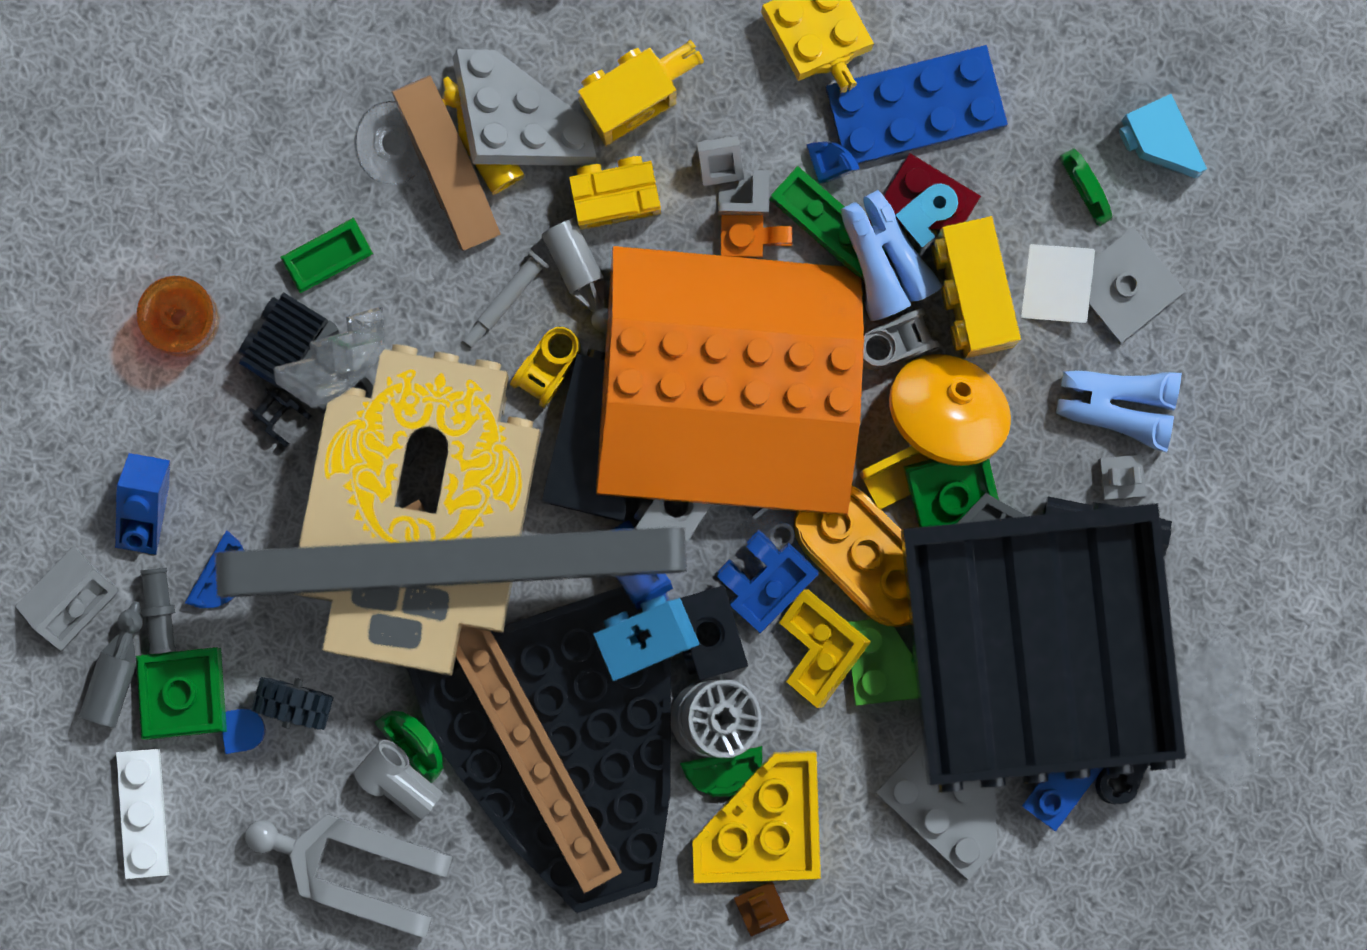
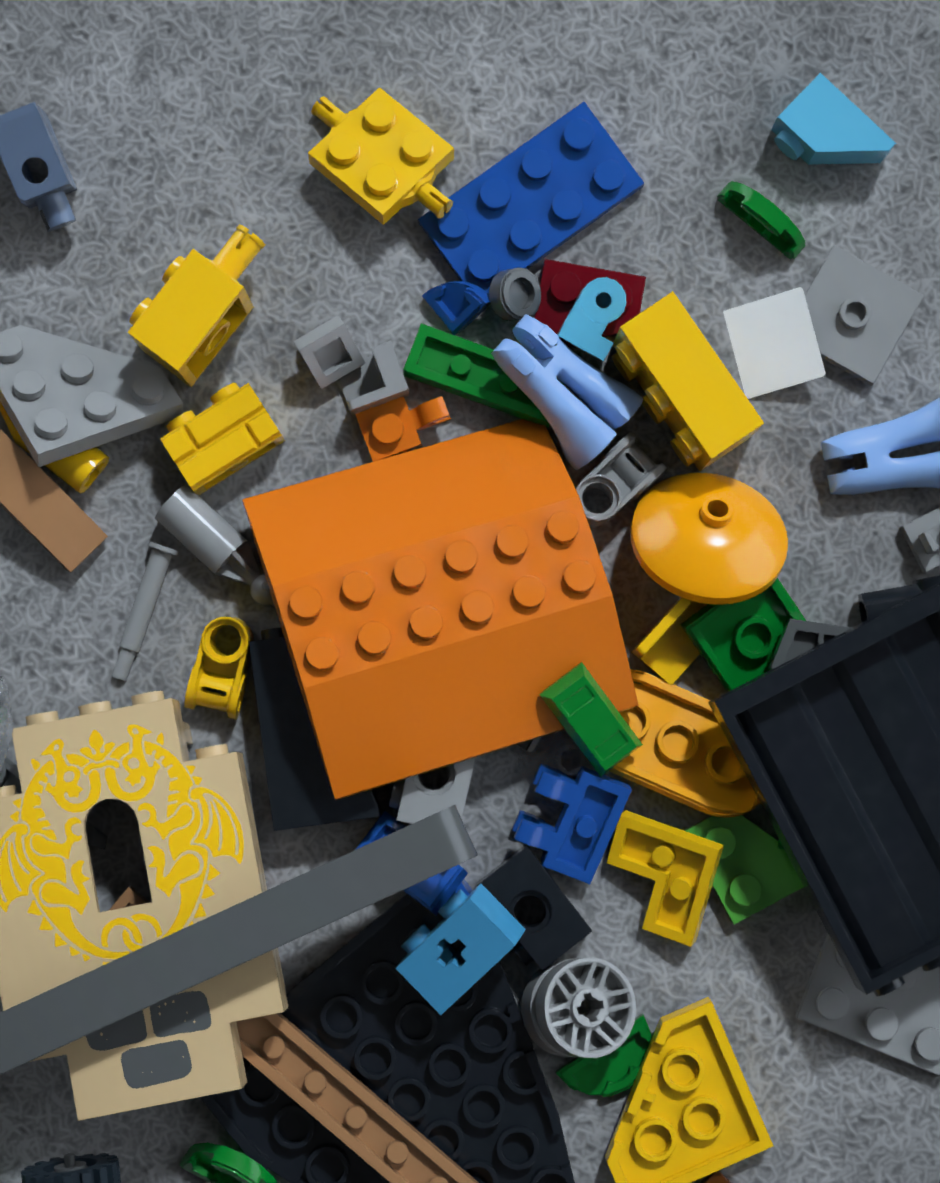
camera: 20 degrees left, 0 degrees up
(808, 509) = (590, 719): none -> green tile
(876, 171) = (515, 294): none -> dark grey tile

